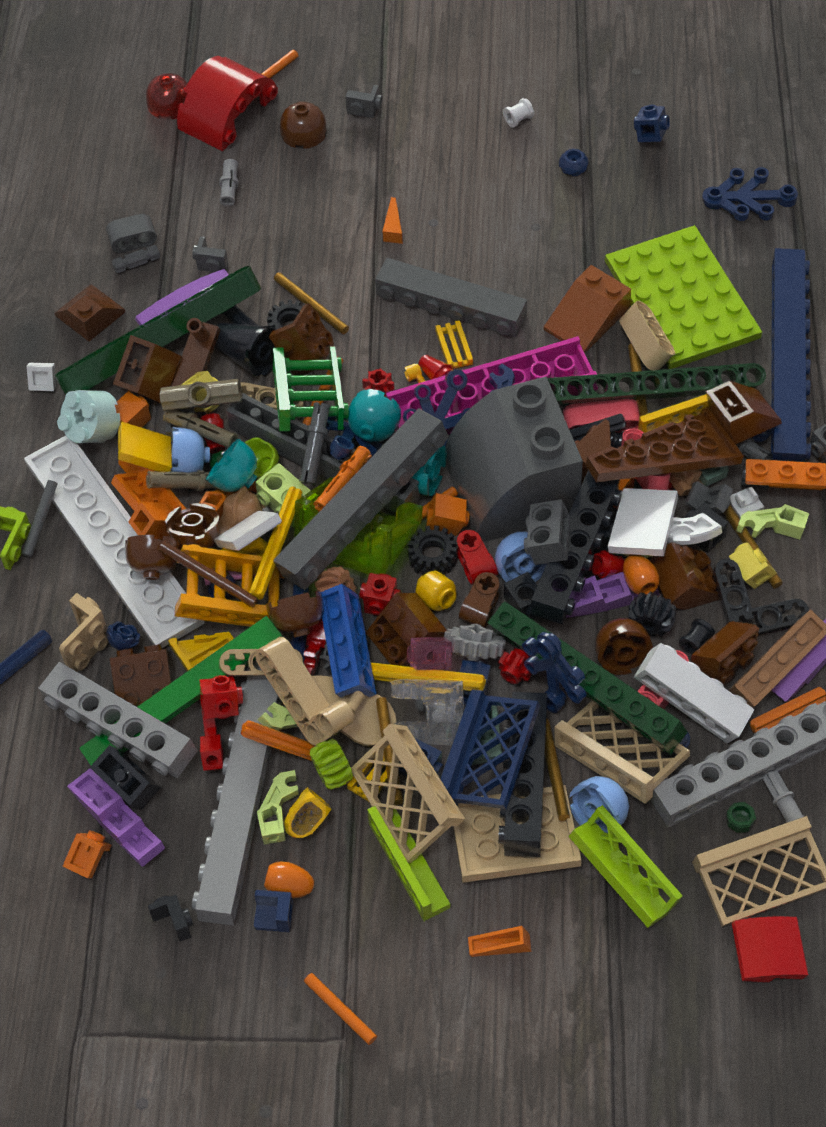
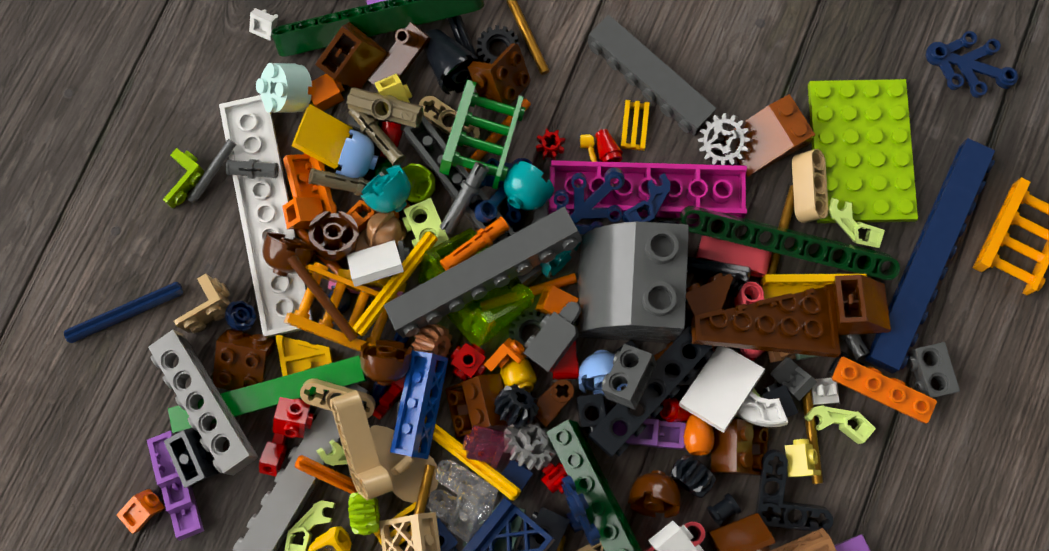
camera: 20 degrees right, 20 degrees up
(83, 498) = (237, 168): none -> dark grey pin
(411, 573) = (508, 350): none -> orange bracket
(446, 607) = (516, 406): none -> black gear
(458, 534) = (554, 337): none -> dark grey hinge
(557, 314) = (721, 130): none -> light grey gear
(700, 356) = (845, 220): none -> yellowish green piece

